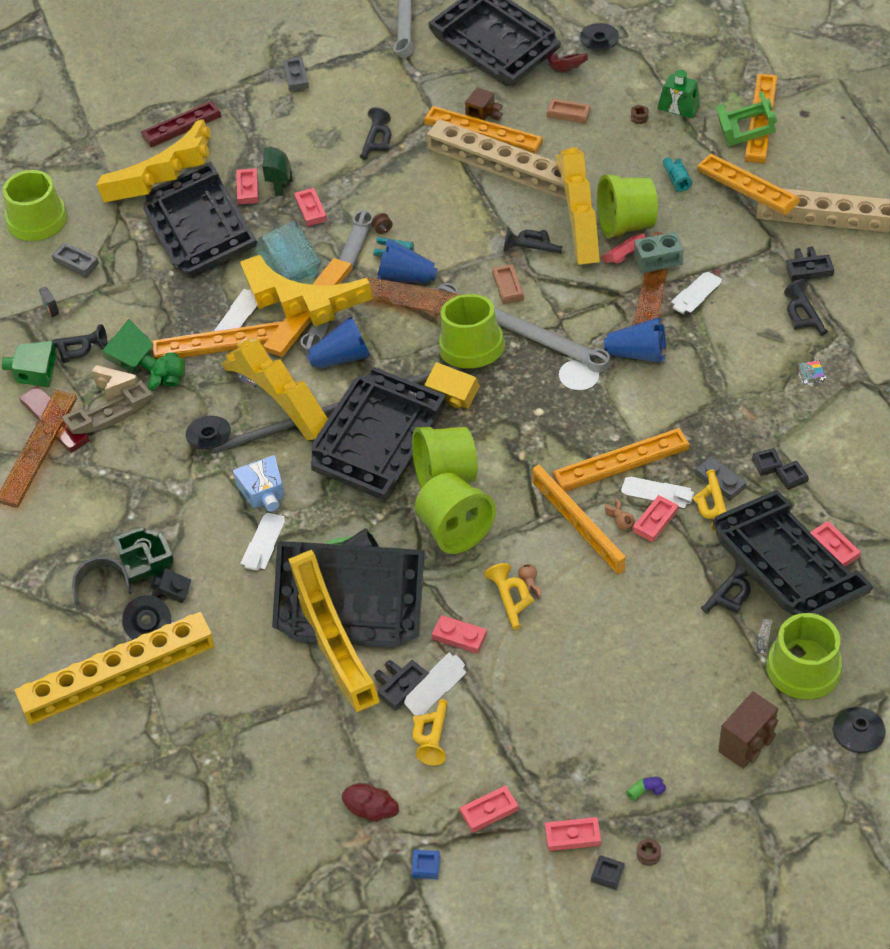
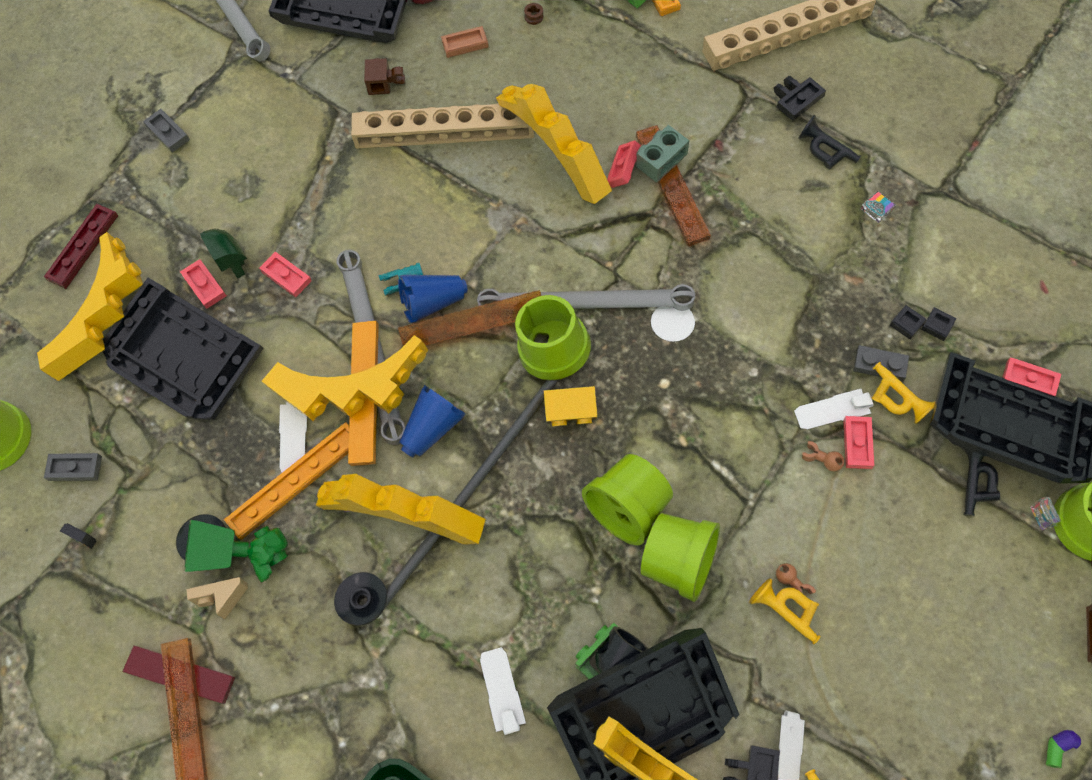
camera: 30 degrees left, 15 degrees up
(32, 363) = (110, 622): torso -> none
(97, 337) = (163, 550): black piece -> none
(110, 413) = (234, 634): dark tan slope -> none
(260, 483) = (457, 627): light blue torso -> none
(288, 252) = (304, 344): clear light blue slope -> none
(372, 430) = (533, 503): black slope -> none
(379, 118) = (287, 139): black piece -> none
(381, 223) = (371, 256): reddish brown bush -> none
(459, 634) = (769, 682): coral plate -> none
(498, 132) = (416, 98): light orange tile -> none
(507, 284) = (538, 258): nougat tile -> none
(521, 240) = (512, 210): black piece -> none
(578, 519) = (792, 485): light orange tile -> none
(621, 460) = (778, 395): light orange tile -> none
(626, 204) = (603, 116): lime piece -> none
(638, 341) = (711, 259): blue cone -> none
(678, 174) = (614, 59): teal hinge -> none
(695, 293) = (718, 177): white piece -> none
(748, 184) = (692, 40): light orange tile -> none

